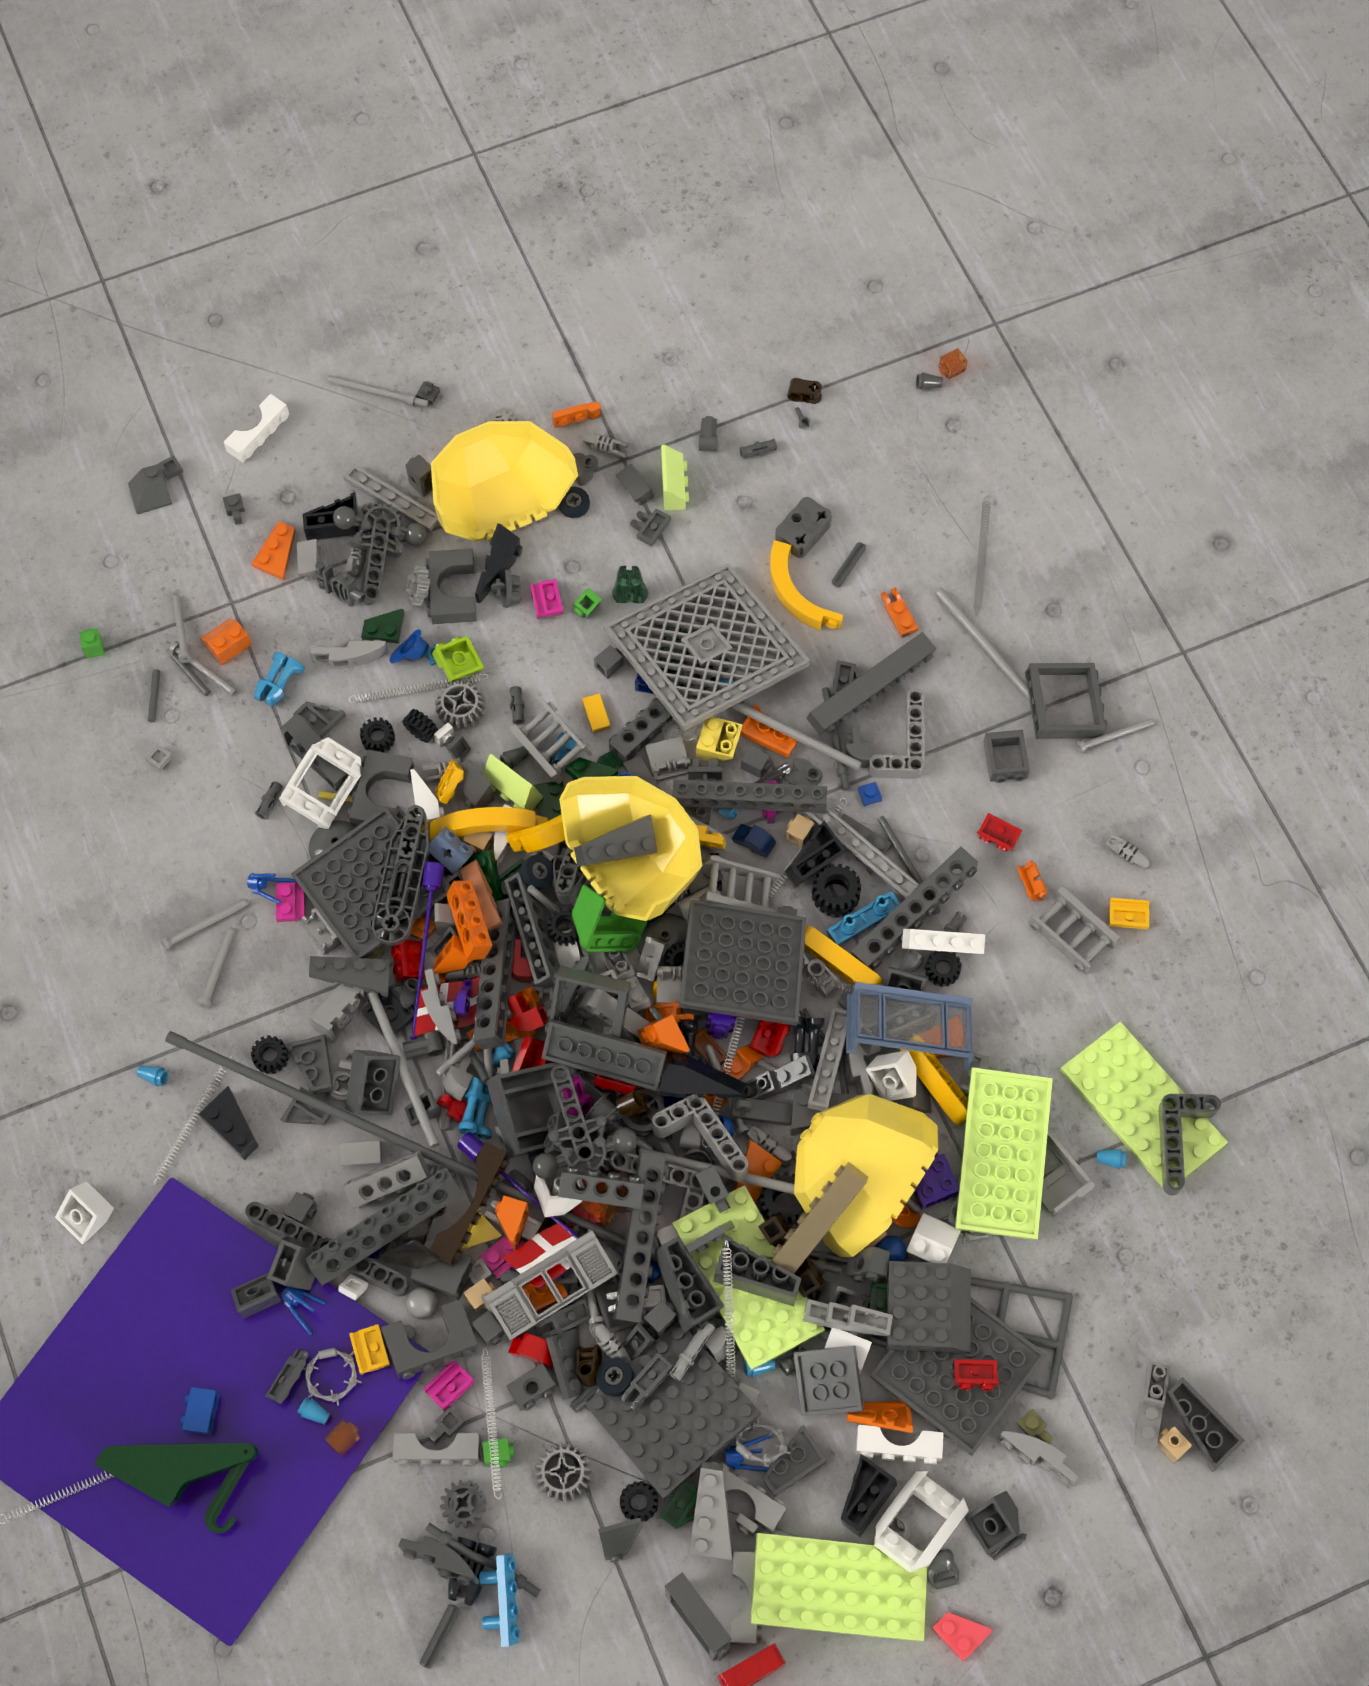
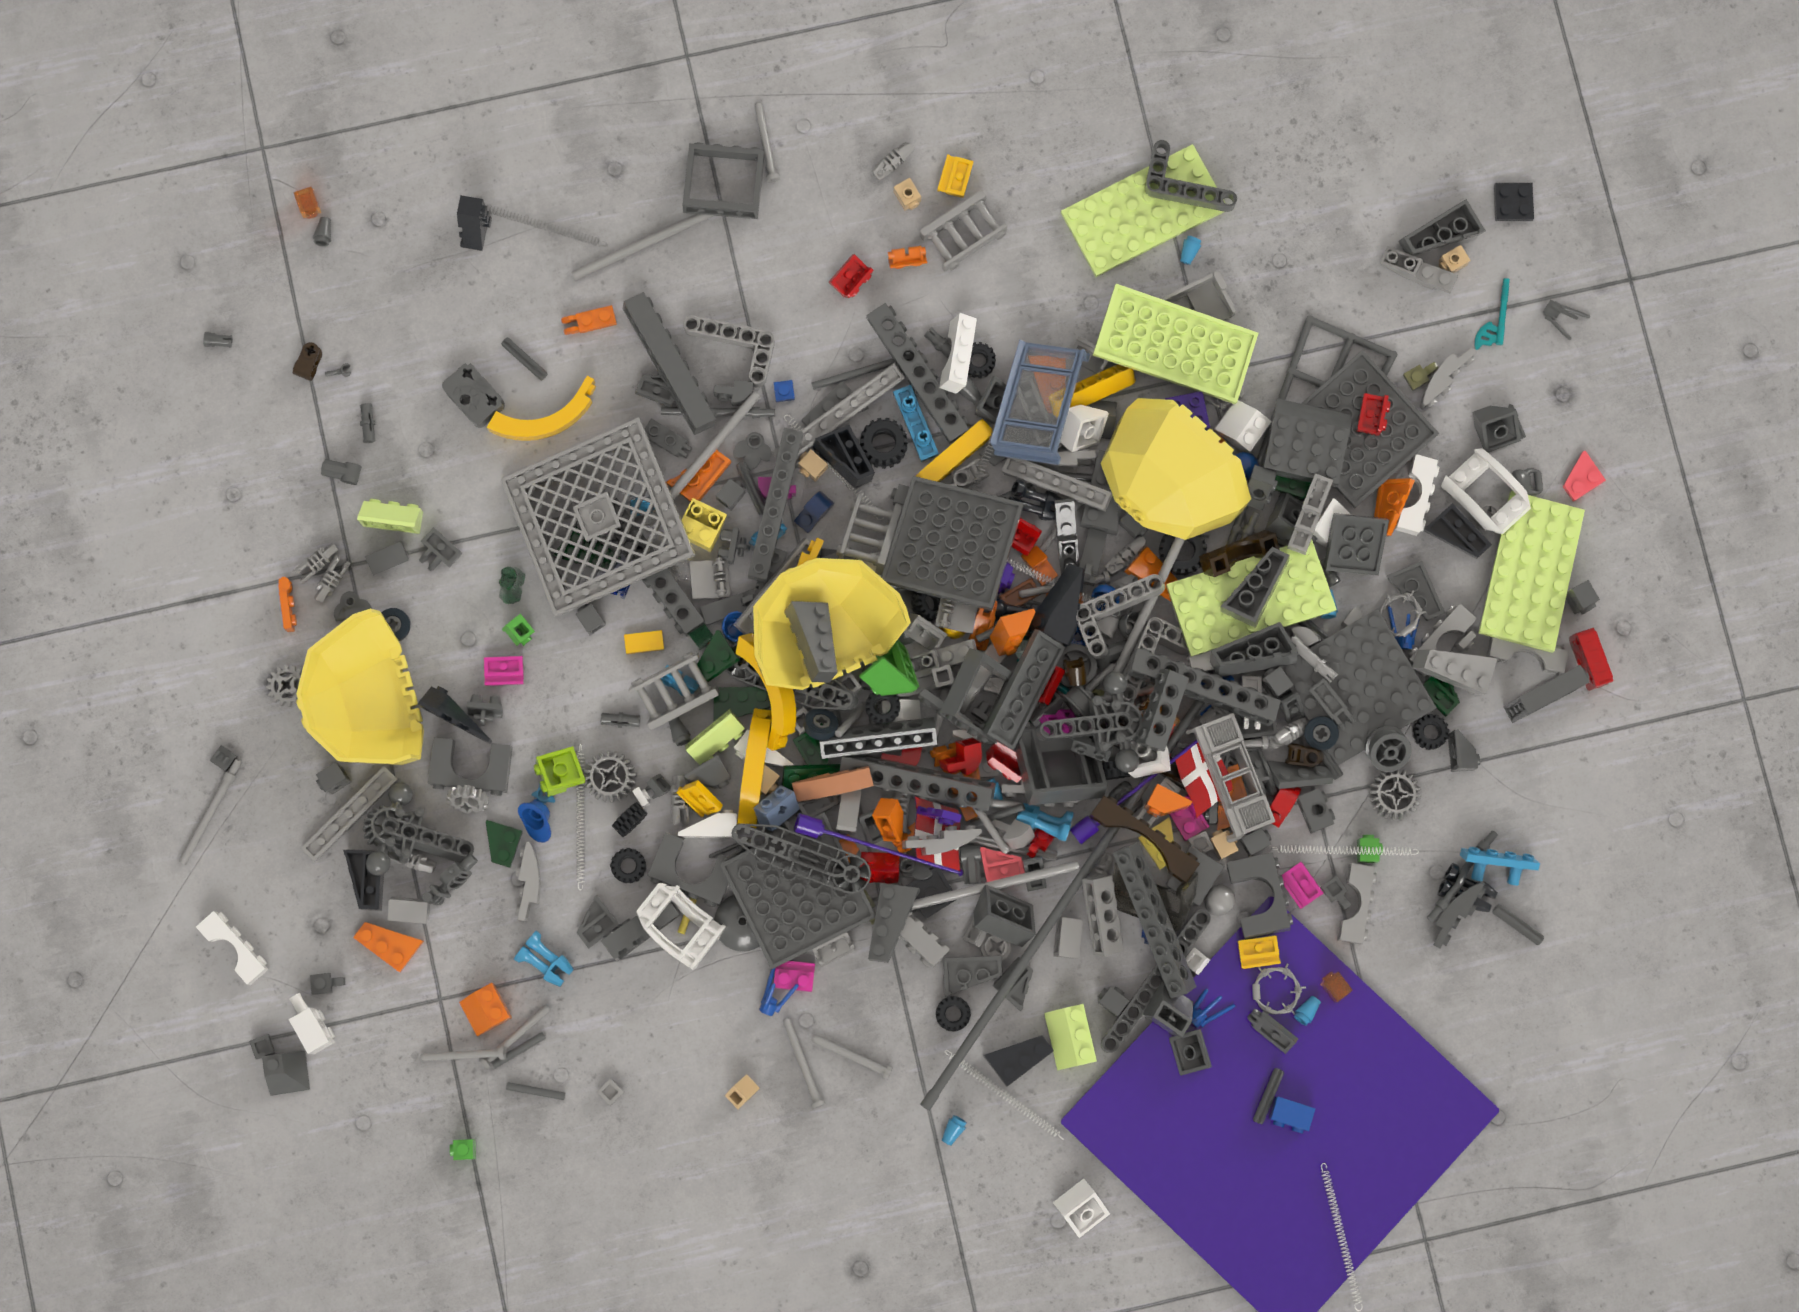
camera: 85 degrees left, 15 degrees up
(169, 870) = (742, 1091): none -> tan brick
(169, 1468) = (1343, 1144): dark green piece -> none
(189, 498) = (310, 1026): none -> white brick
(218, 1385) = (1268, 1096): none -> dark grey axle
(259, 1174) = (1070, 1037): none -> yellowish green slope
(268, 800) = (680, 984): dark grey pin -> none
(424, 1072) = (1000, 865): none -> coral wing
(469, 920) = (862, 797): orange brick -> none
(470, 1509) = (1414, 893): dark grey gear -> none
(608, 1451) = (1388, 748): none -> dark grey wheel
(620, 430) = (316, 561): none -> light grey hinge
(710, 1178) = (1168, 611): dark grey torso -> none
(716, 1234) = (1217, 622): dark grey wing -> none
(729, 1312) = (1282, 613): white piece -> none
(798, 698) = (667, 439): none -> dark grey hinge
(807, 315) = (213, 339): none -> dark grey pin
(819, 1649) = (1582, 598): none -> dark grey brick
(820, 1218) = (1224, 518): dark tan brick -> none
(967, 493) = (474, 220): none -> black wedge
(1006, 738) = (751, 265): dark grey window -> none
(1097, 871) = (907, 194): none -> tan brick
(1108, 1510) = (1500, 329): none -> teal piece
(1146, 1568) = (1553, 309): none -> dark grey plant
(1259, 1504) = (1513, 201): none -> black plate

